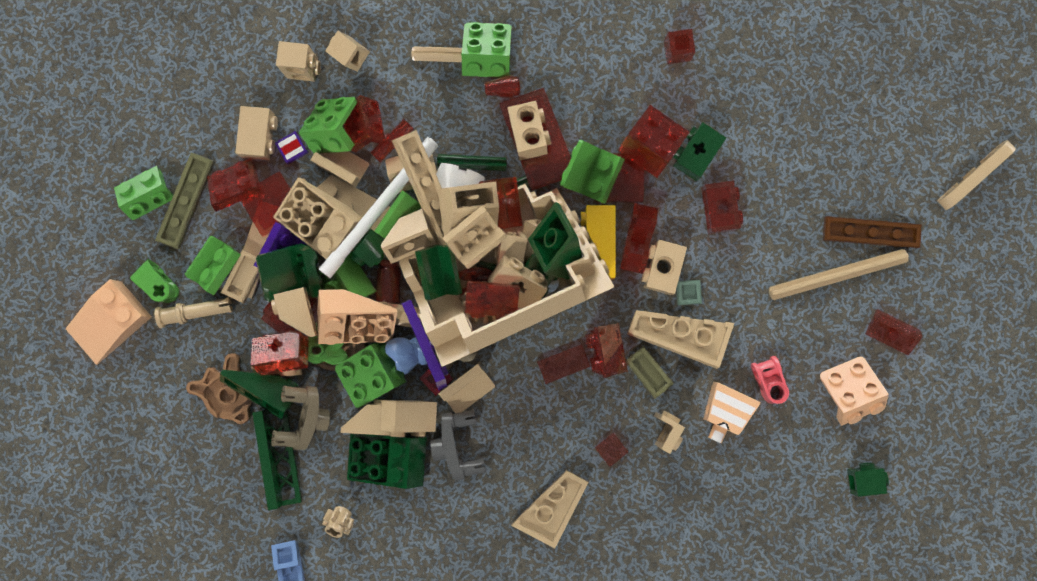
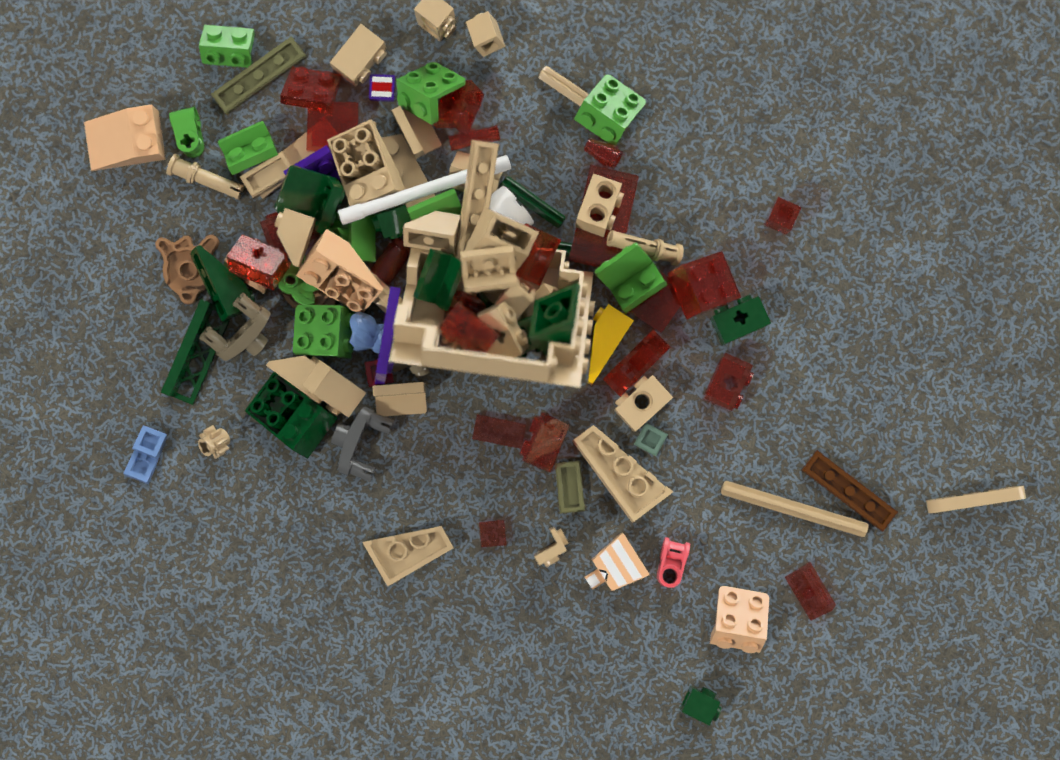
camera: 30 degrees right, 0 degrees up
(596, 137) = (655, 249): none -> tan pin

